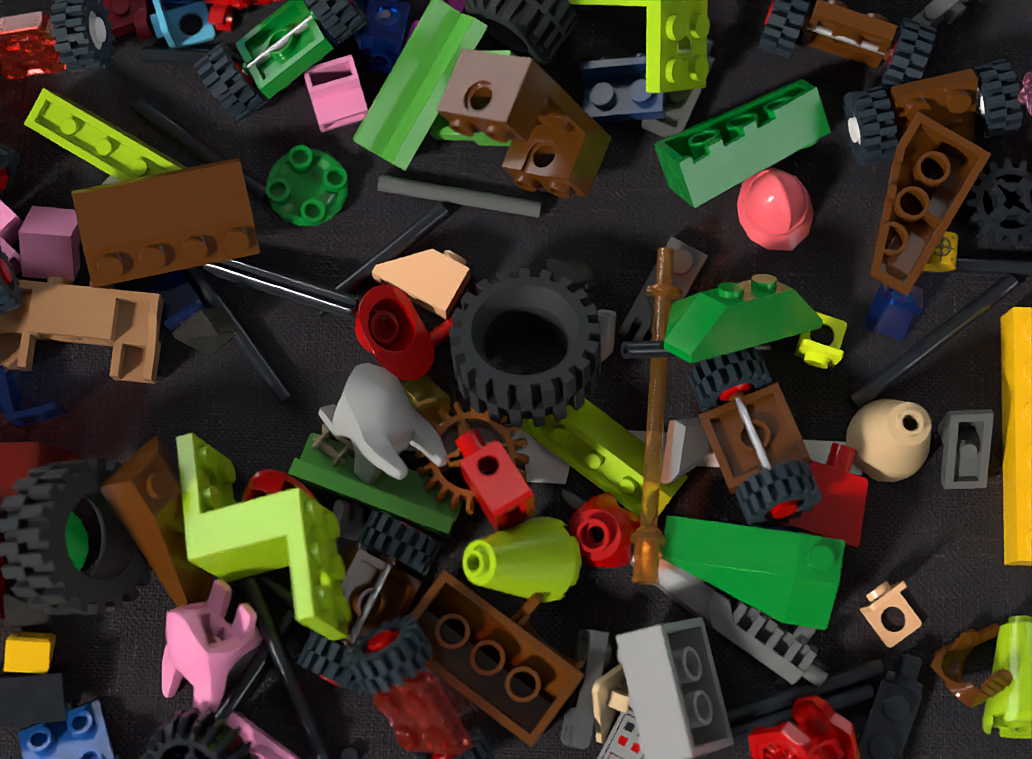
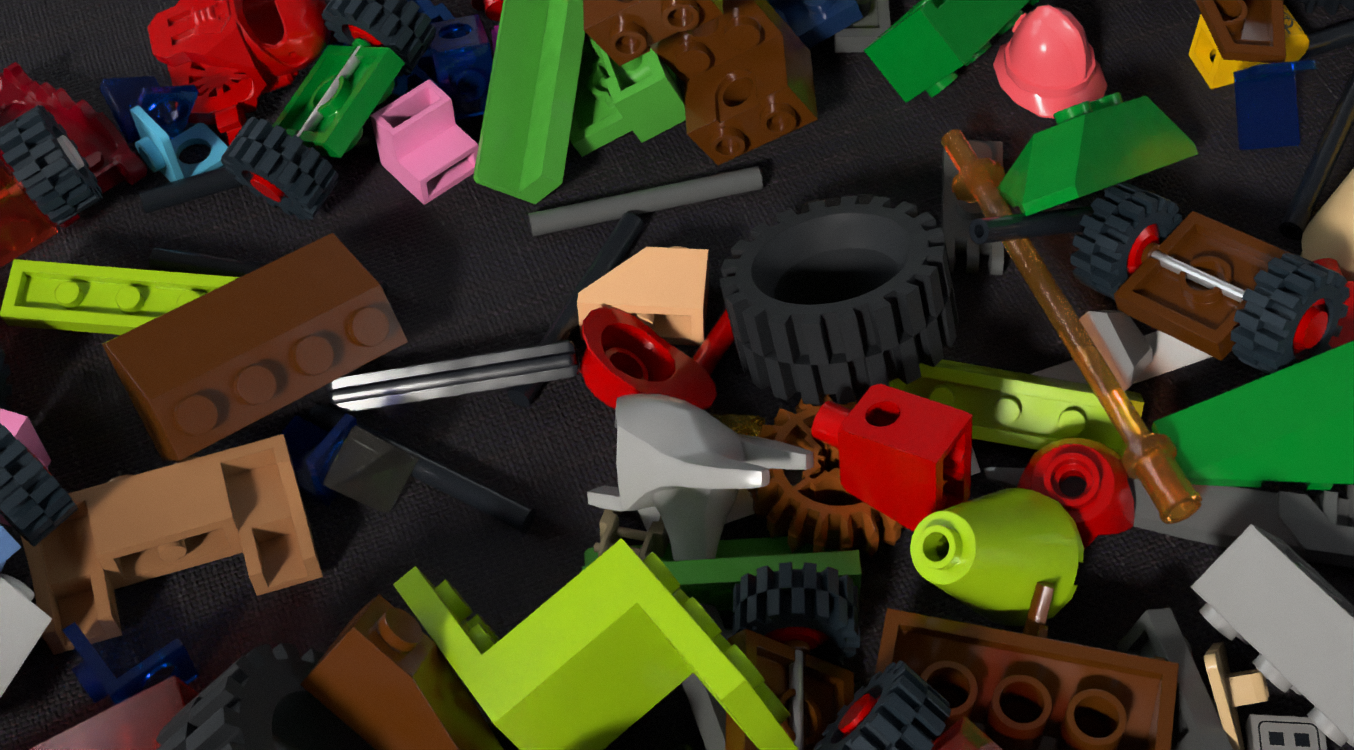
camera: 20 degrees left, 25 degrees down
(50, 243) = (91, 446): bright pink piece -> none
(307, 186) = (435, 259): green dish -> none
(820, 354) = (1210, 180): neon yellow bracket -> none

